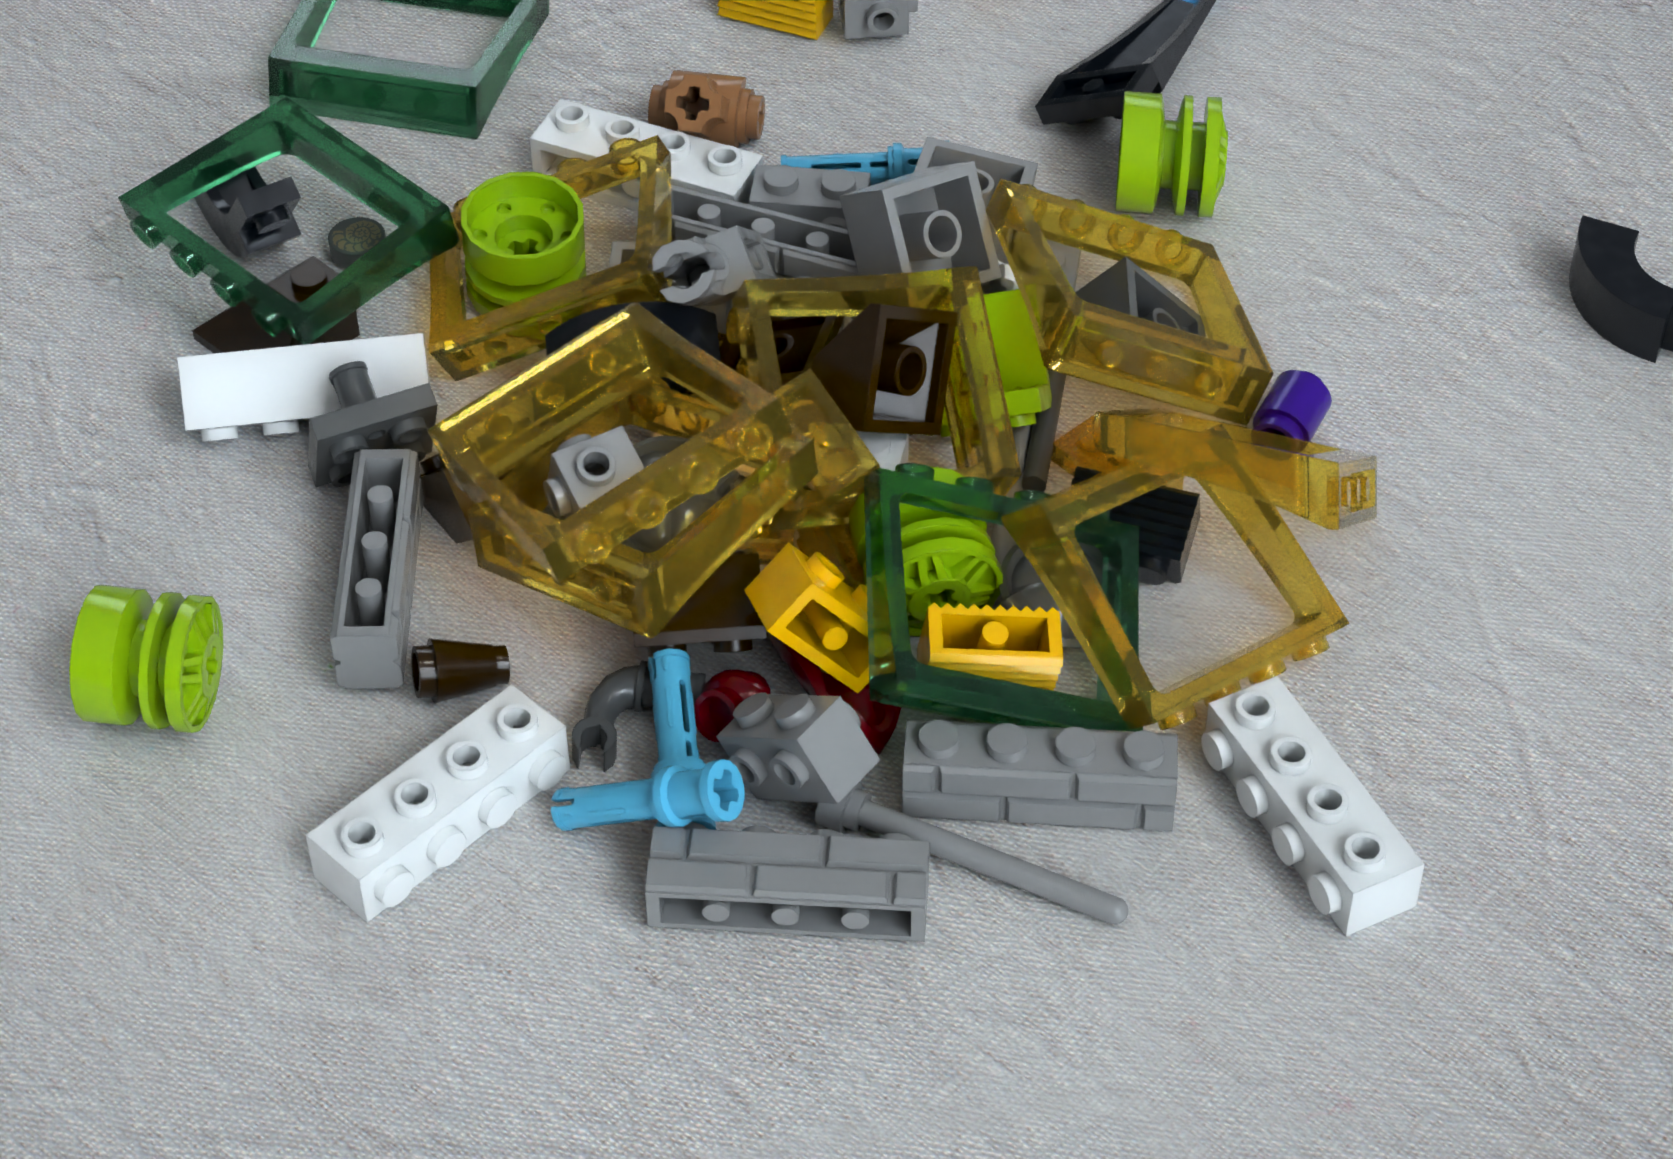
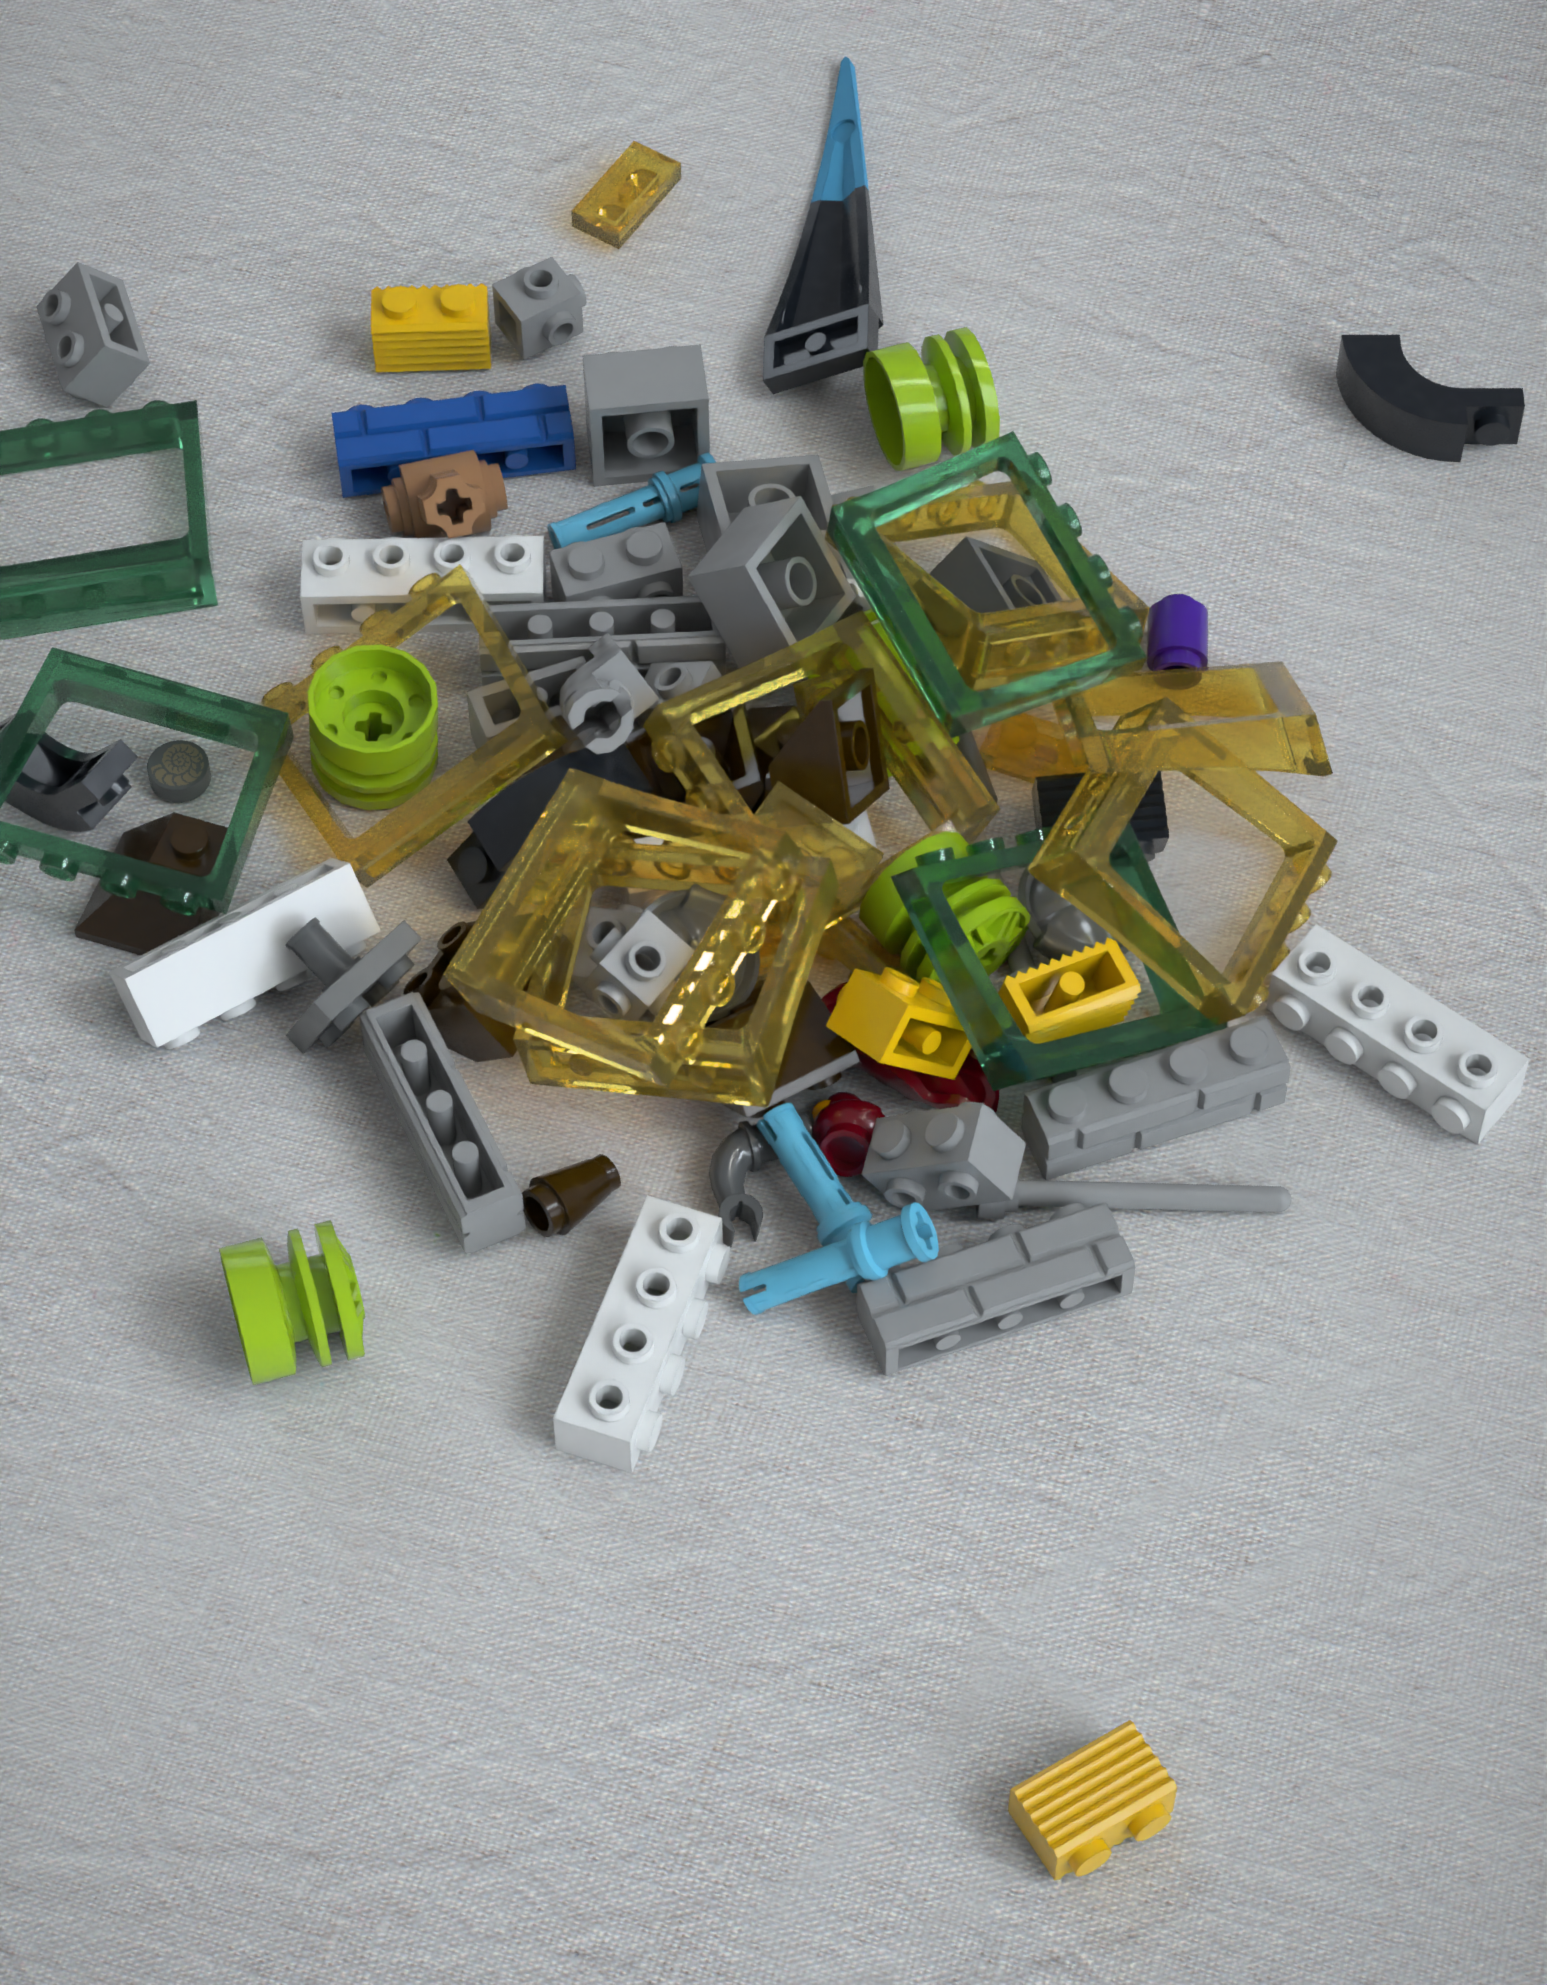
camera: 25 degrees left, 10 degrees up
(797, 80) = (518, 429): none -> blue brick
(907, 88) = (645, 412): none -> light grey brick
(1032, 381) = (954, 704): none -> clear green windscreen

